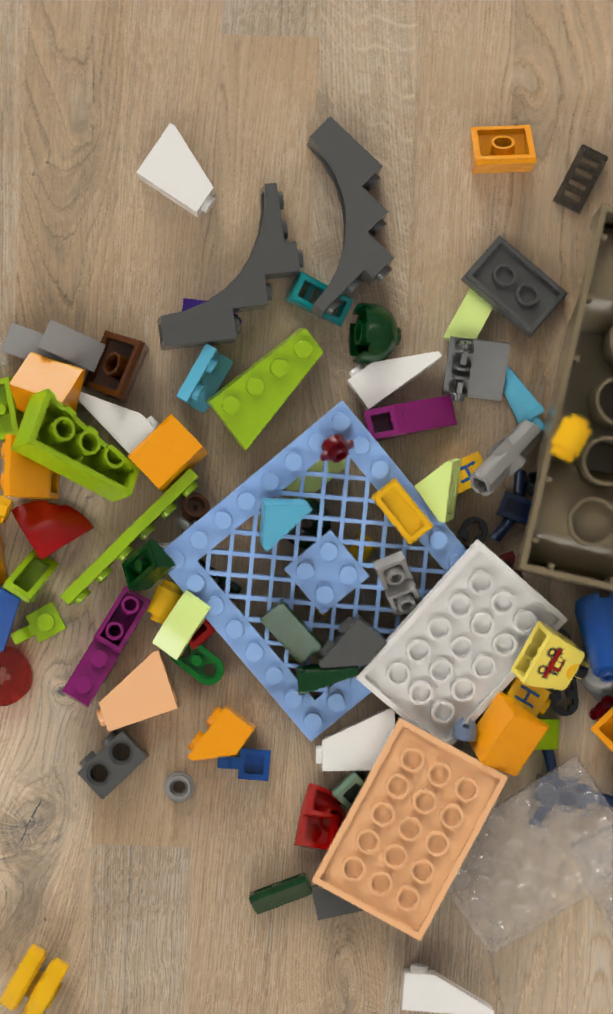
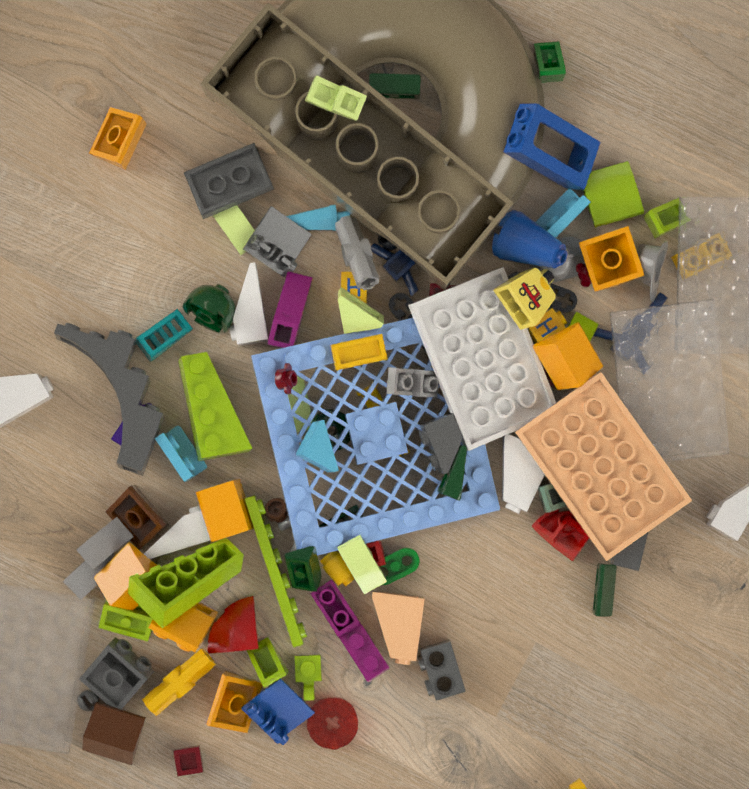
camera: 65 degrees left, 0 degrees up
(176, 796) = (487, 635): light grey plate -> none
(224, 737) = (463, 573): light orange slope -> none
(251, 764) = (494, 564): blue plate -> none
(291, 631) = (409, 482): slope -> none
(351, 172) = (78, 262): dark grey arch -> none
(464, 732) = (550, 388): sand blue hinge -> none
(570, 438) = (367, 196): yellow brick -> none
(591, 155) = (158, 71): clear smoke slope -> none

